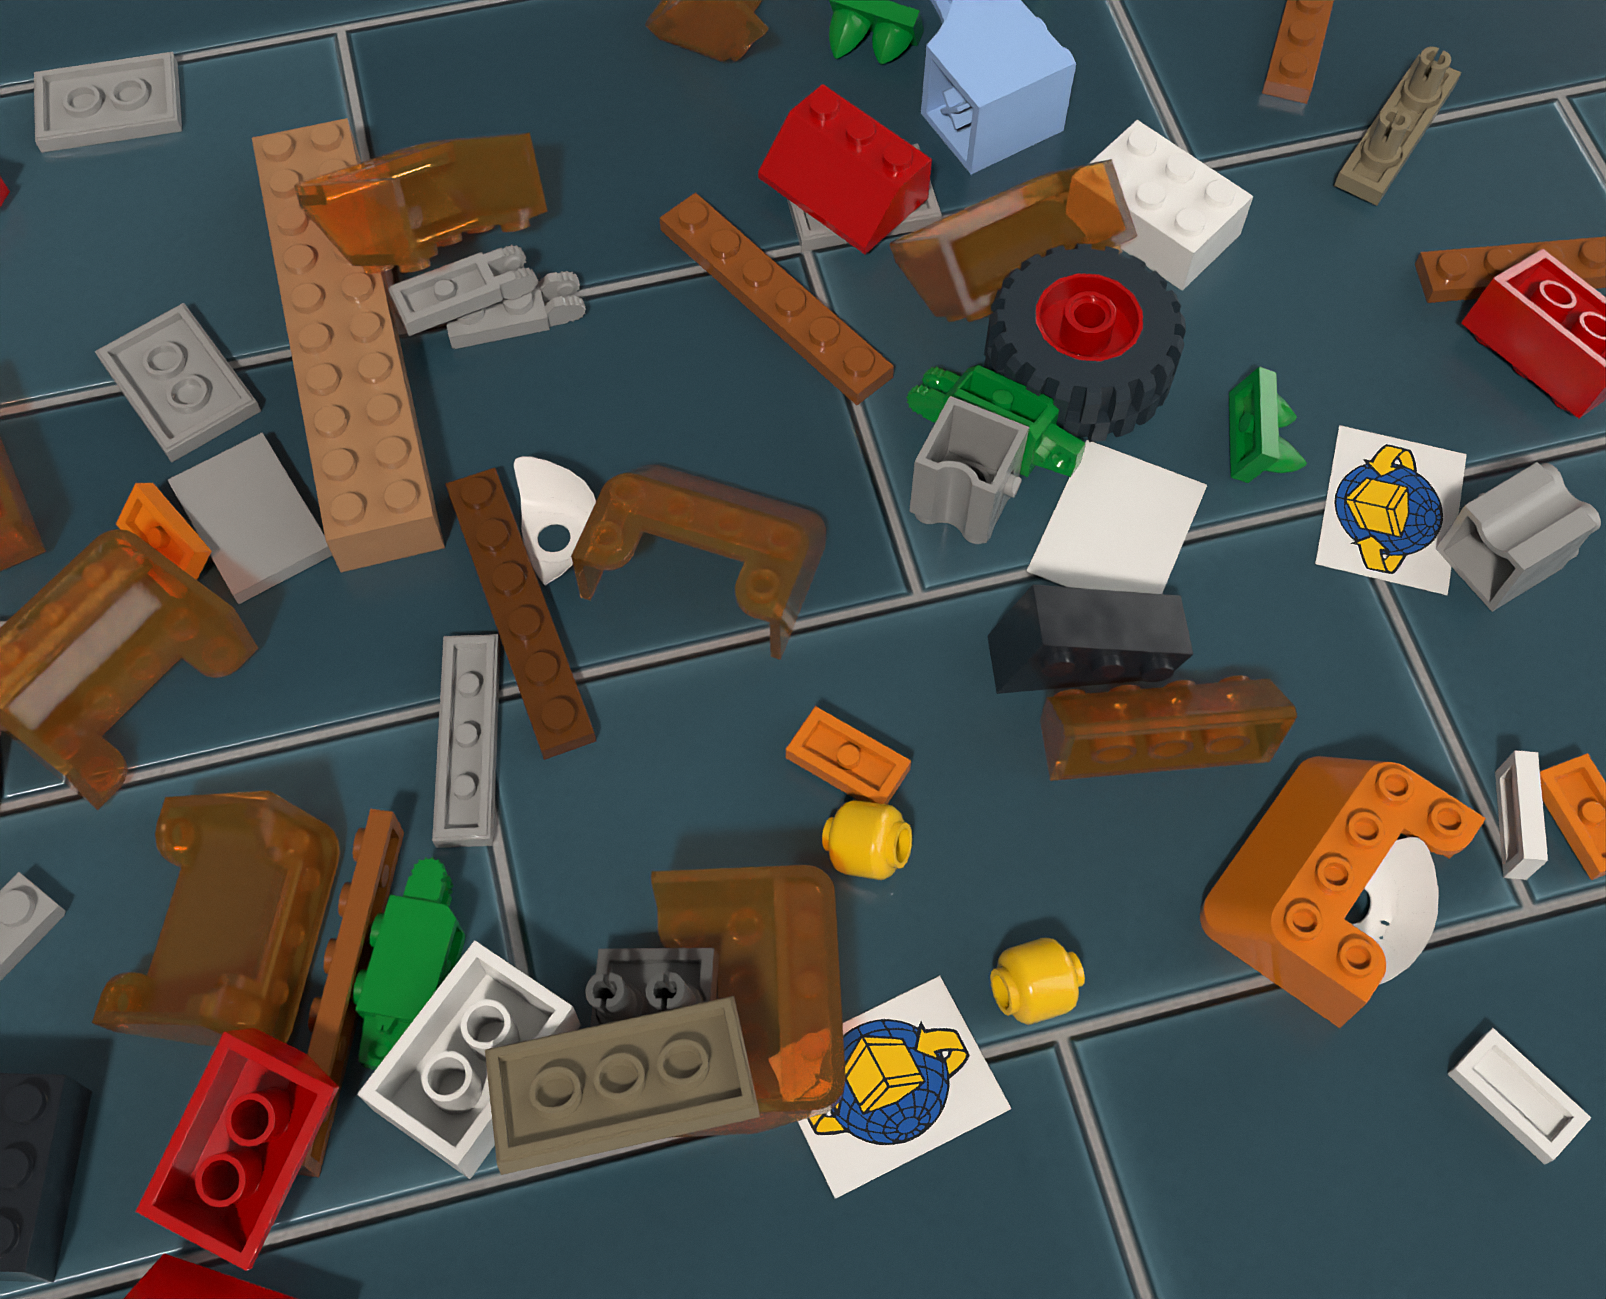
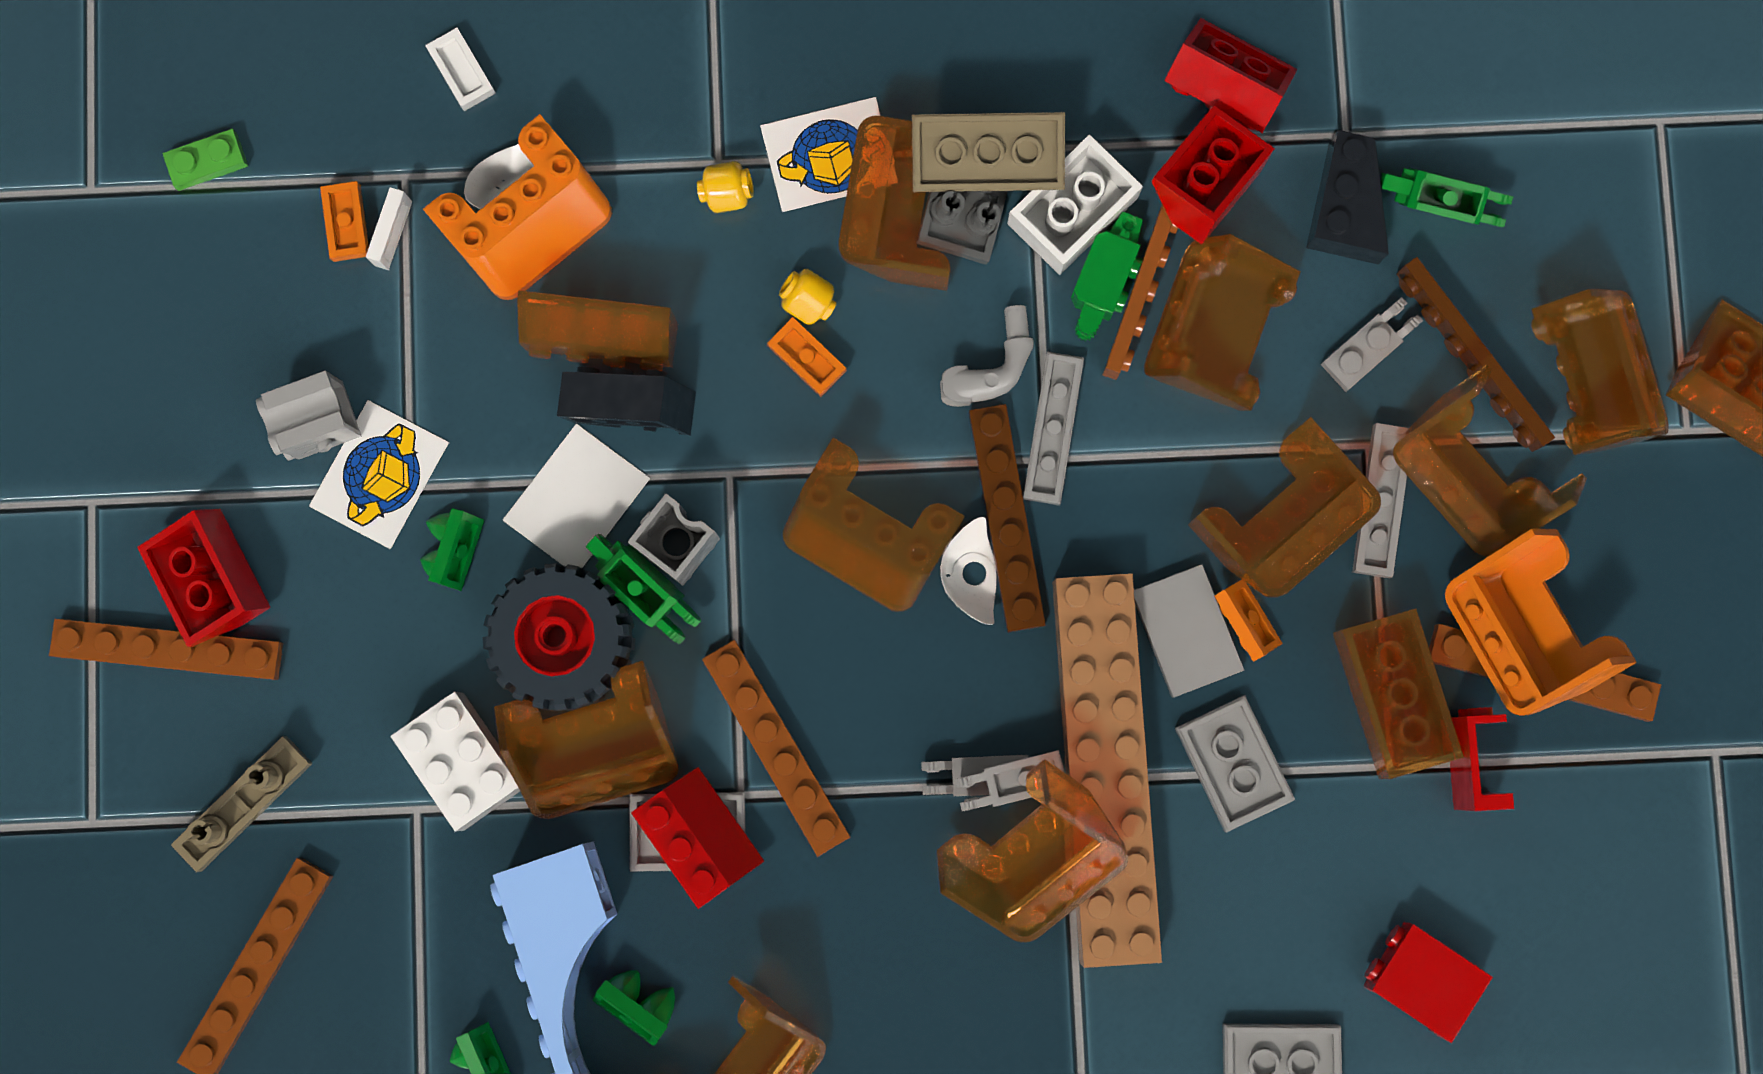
camera: 165 degrees left, 20 degrees up
(605, 762) = (964, 386): none -> light grey piece

